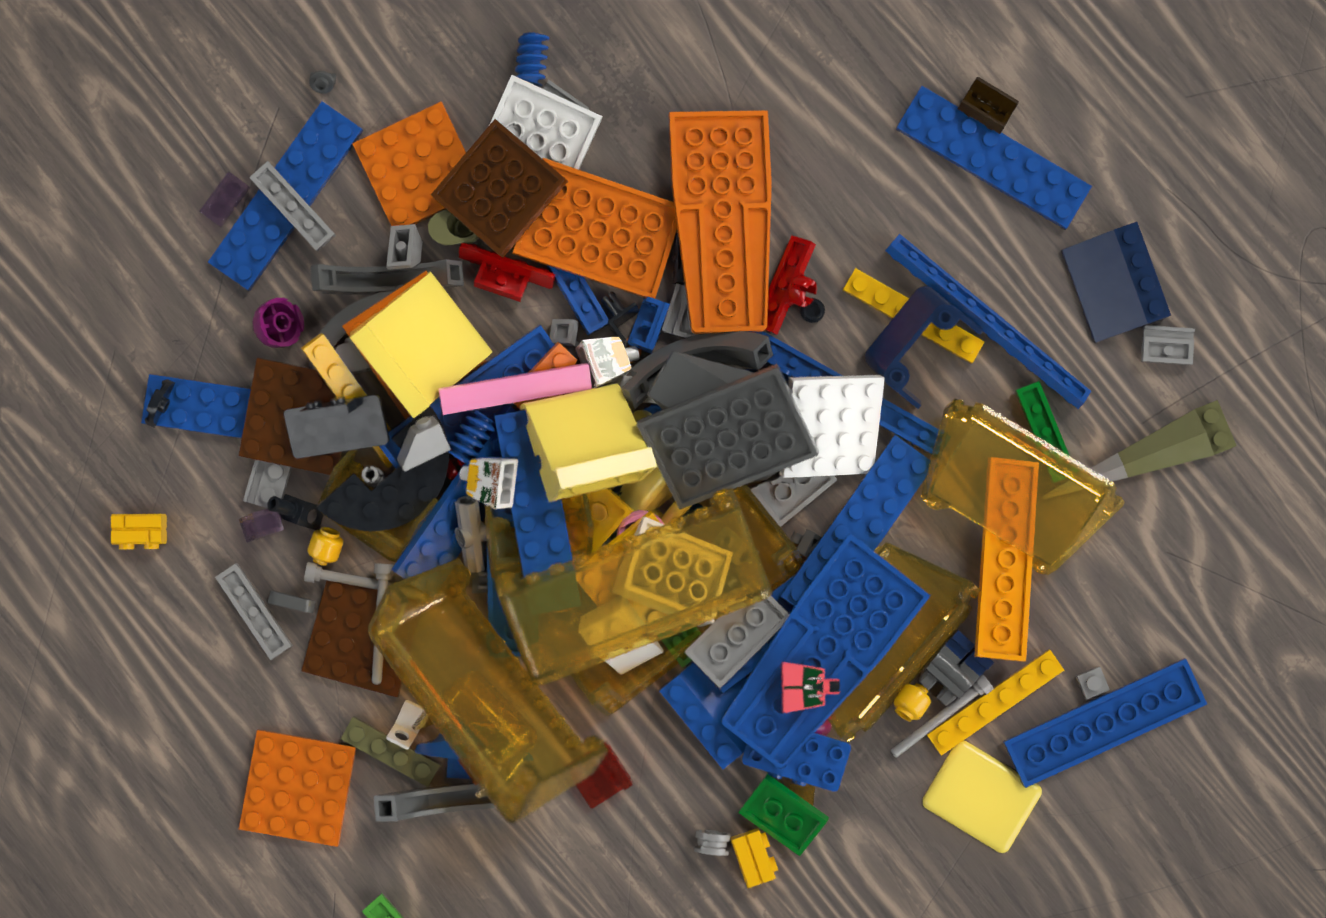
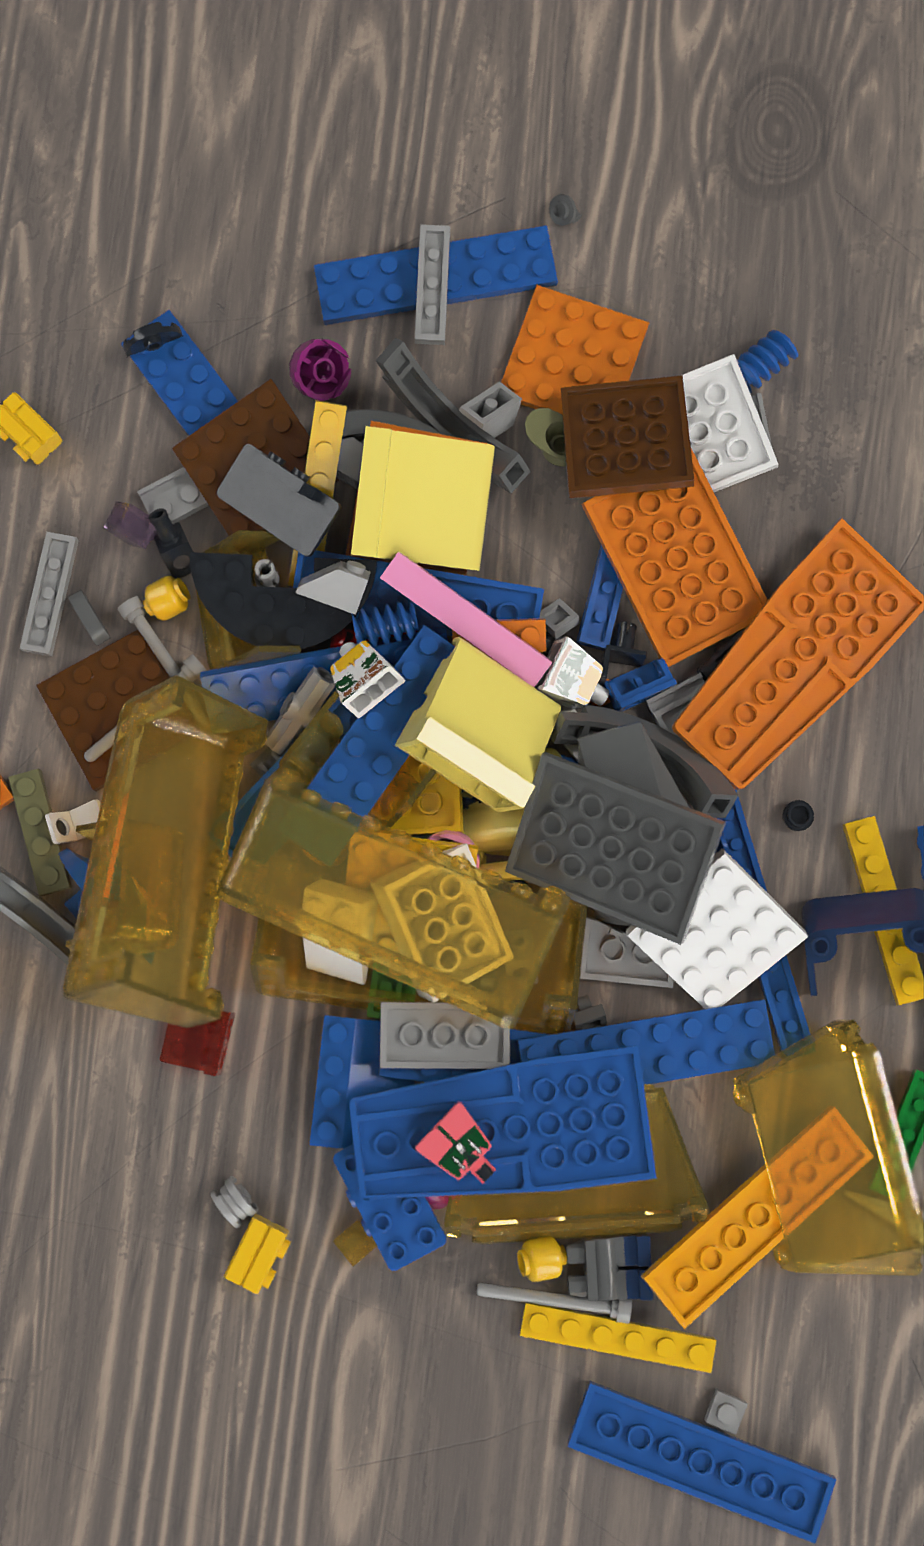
camera: 45 degrees right, 5 degrees down
(224, 199) = (381, 227): clear purple plate -> none
(504, 275) = (556, 518): red bracket -> none
(783, 814) = (323, 1243): green plate -> none
(790, 283) = (802, 771): red plate -> none
(981, 796) = (519, 1412): light yellow piece -> none

